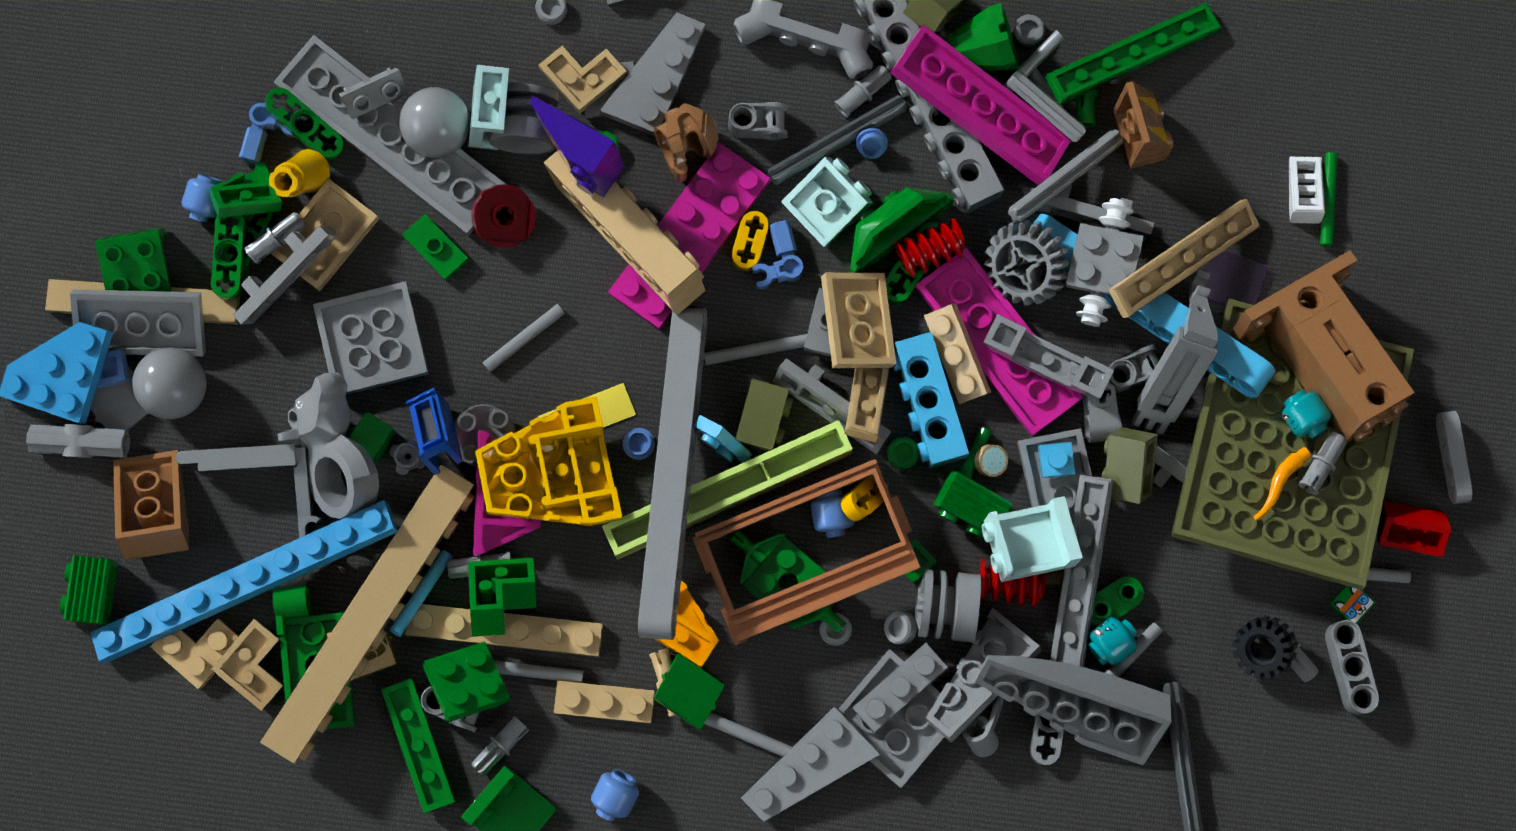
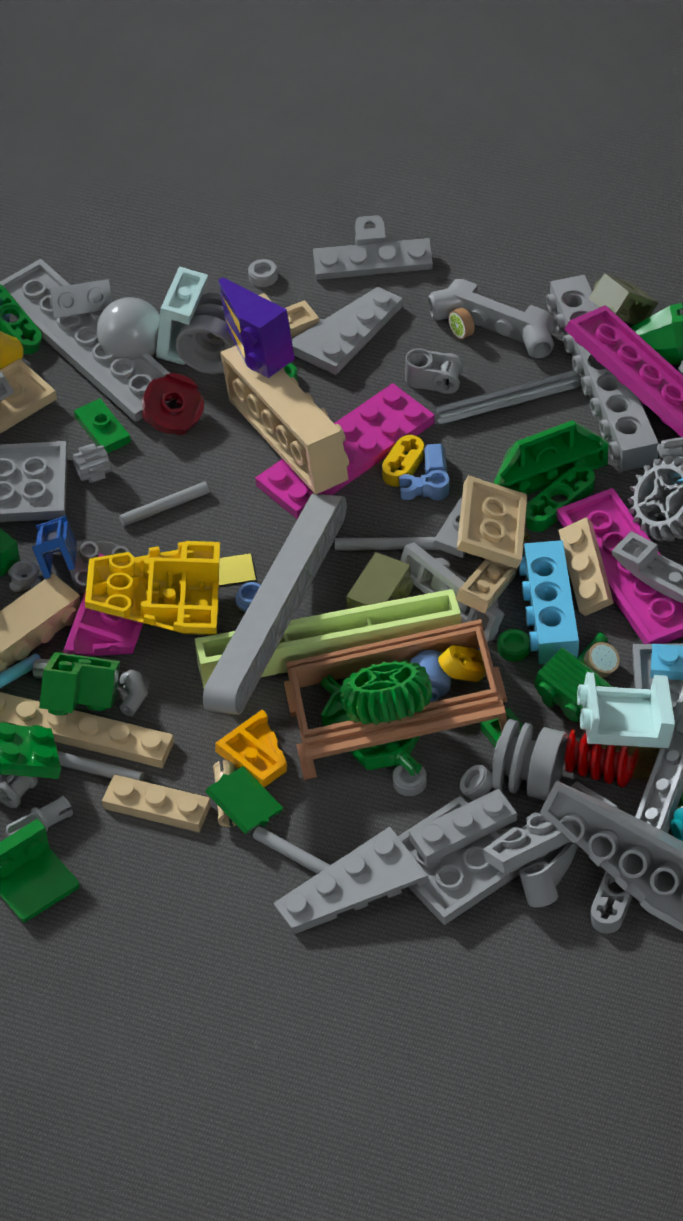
camera: 15 degrees right, 30 degrees down
(439, 305) = (92, 463): none -> light grey gear
(553, 575) = (137, 691): none -> light grey arm
(615, 795) = (143, 877): medium blue head -> none
(686, 131) = (361, 366): medium nougat helmet -> none
(720, 438) = (330, 586): medium azure plate -> none
(773, 50) = (461, 323): none -> tile
(799, 579) = (386, 692): none -> green gear
(828, 200) = (484, 434): light aqua plate -> none
(863, 90) = (539, 364): light grey axle -> none
(871, 143) = (539, 401): medium blue plate -> none
(931, 247) = (576, 474): red piece -> none

